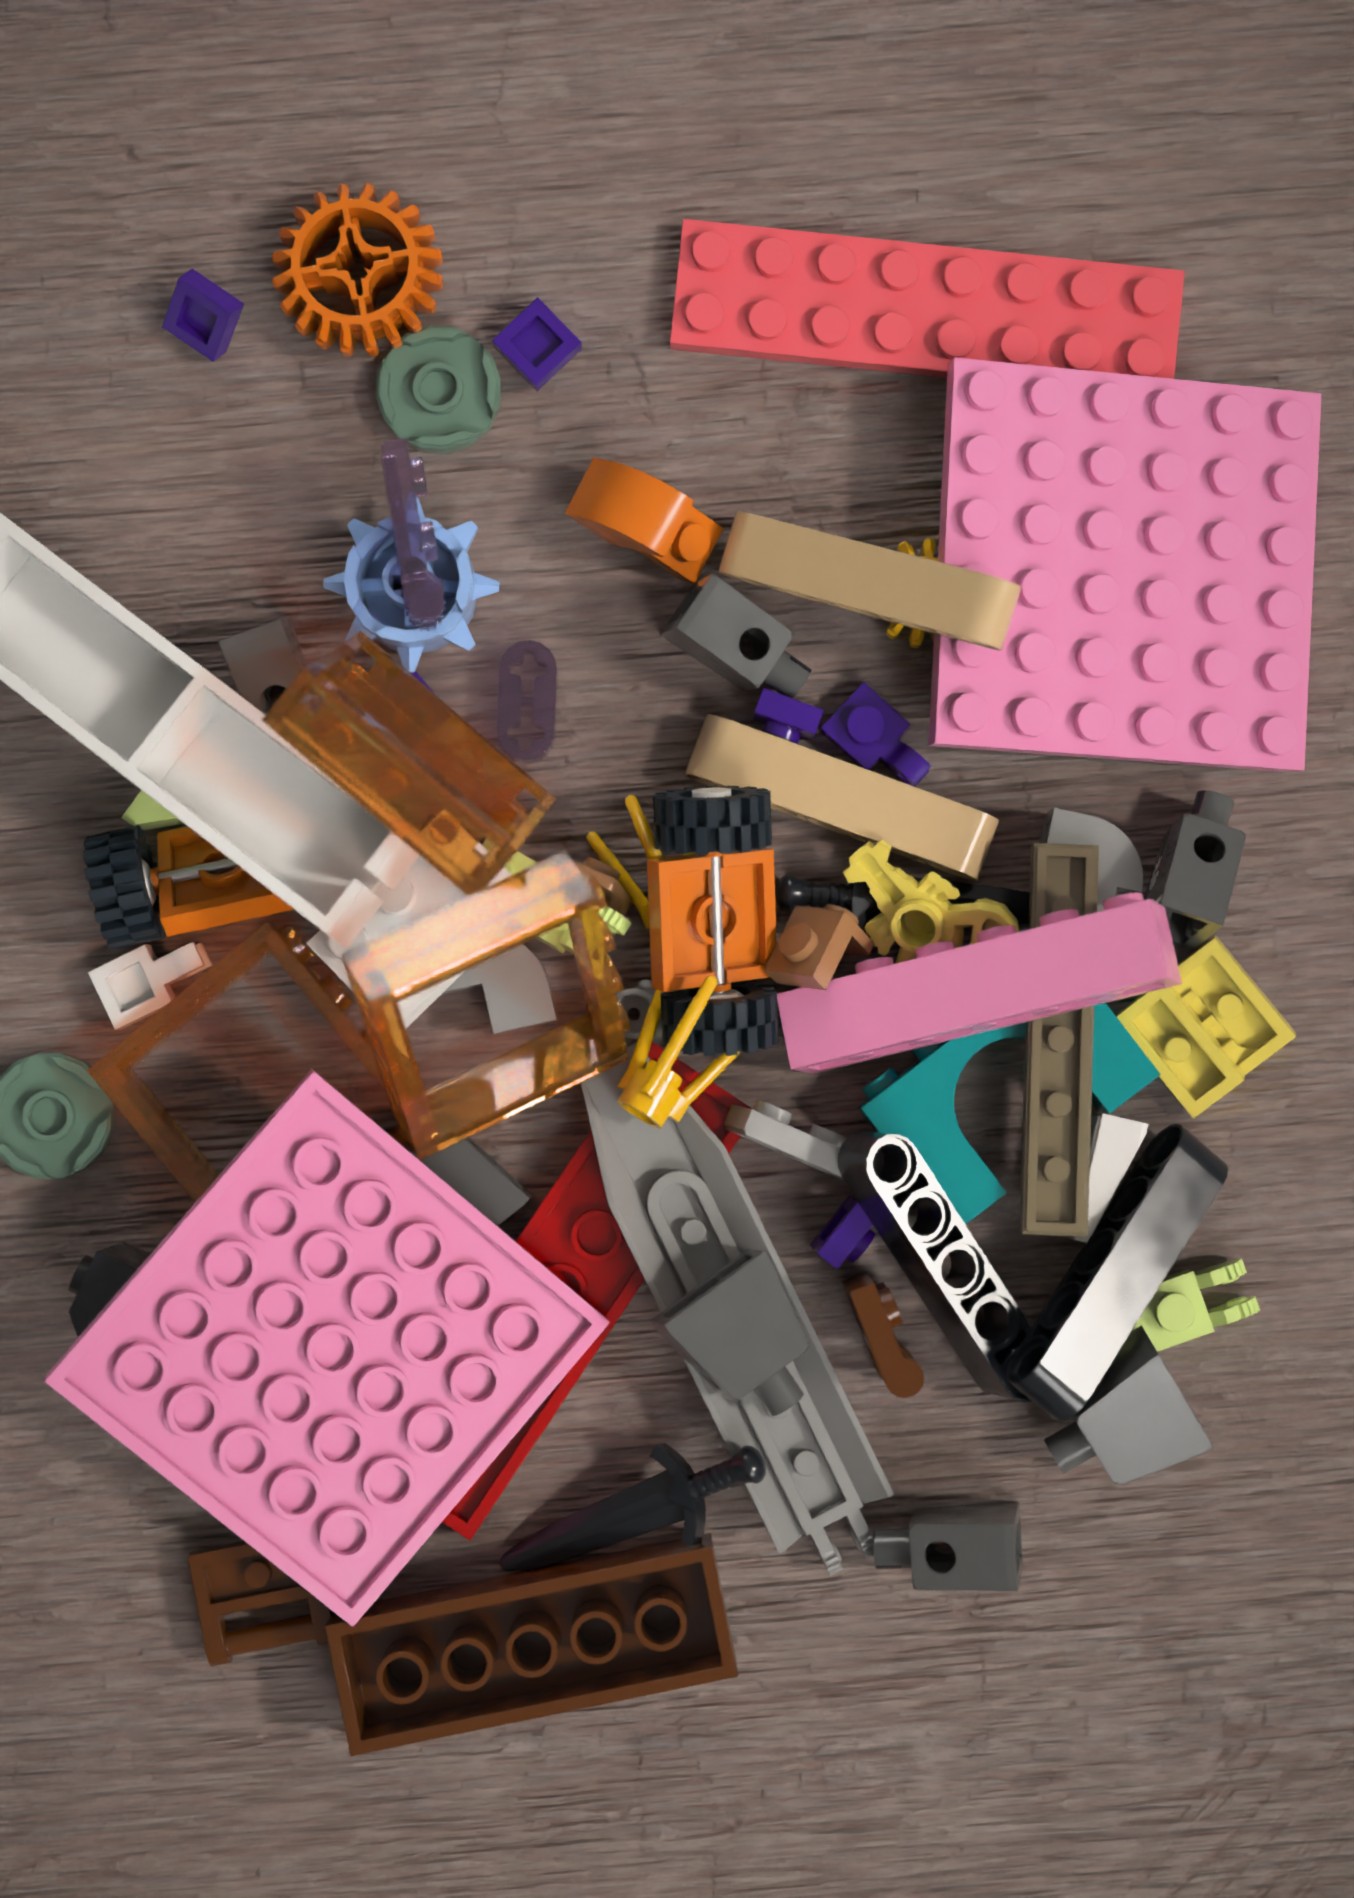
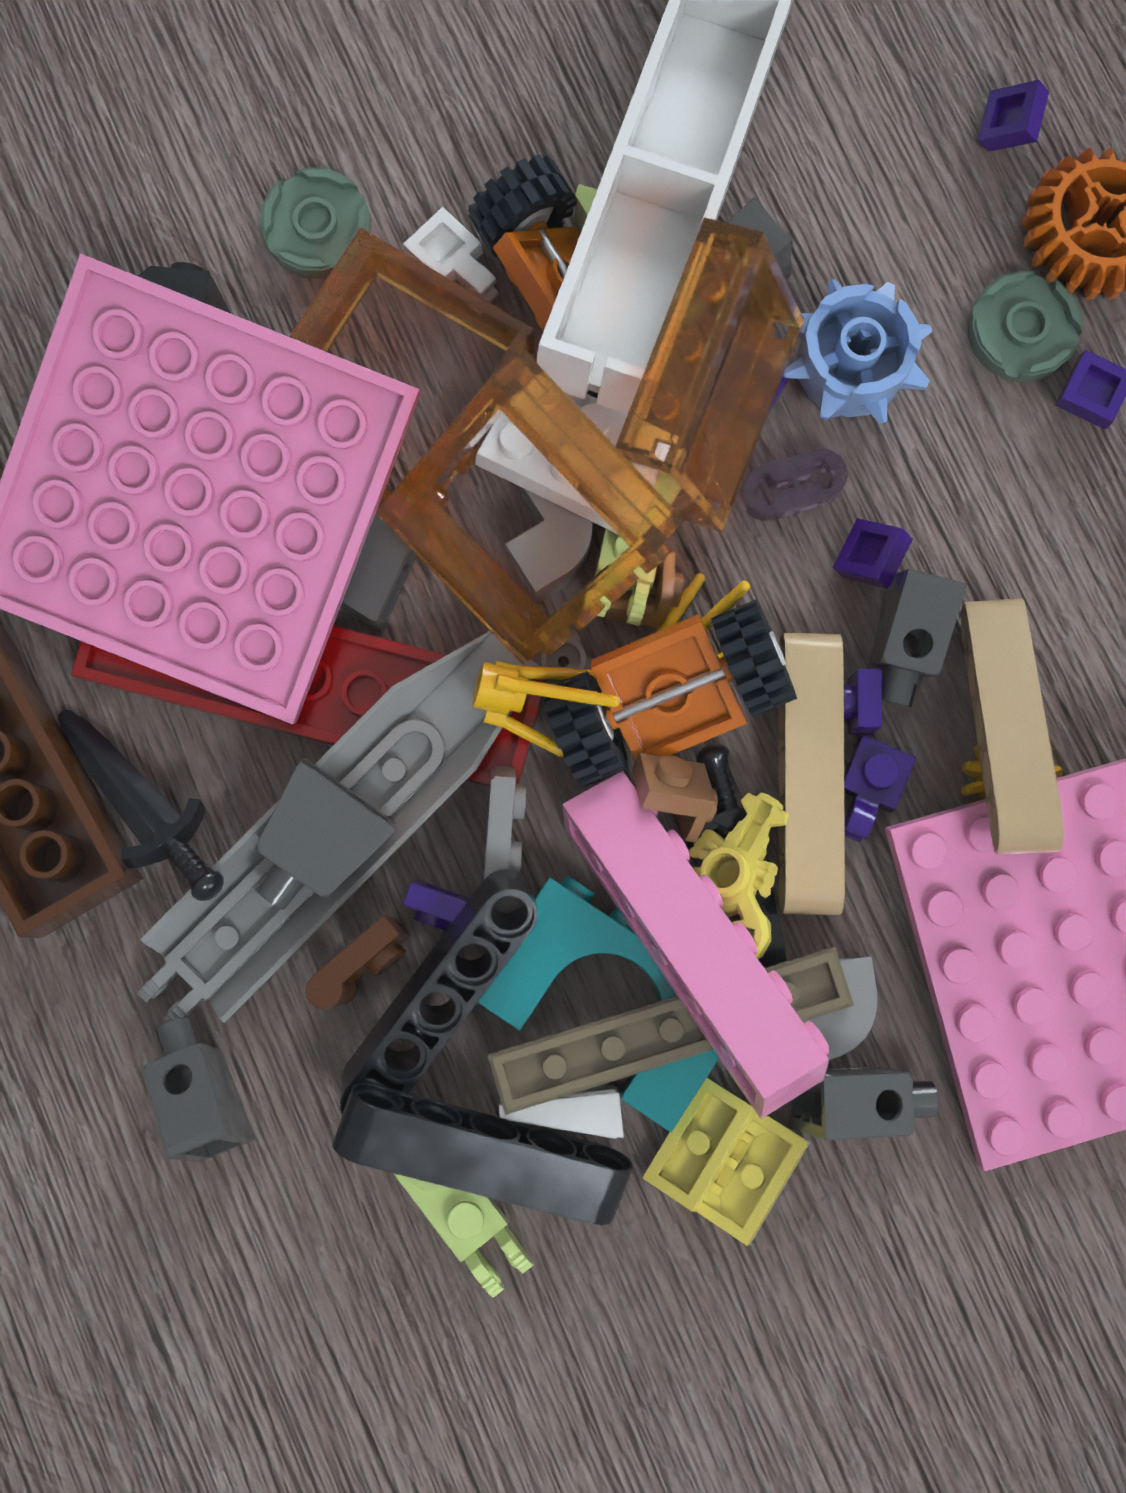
camera: 70 degrees right, 5 degrees down
(412, 539) = (900, 323): clear purple hinge -> none
(633, 647) = (872, 553): none -> dark purple plate
(644, 516) = (989, 523): orange brick -> none
(1132, 1419) = (358, 1213): torso -> none

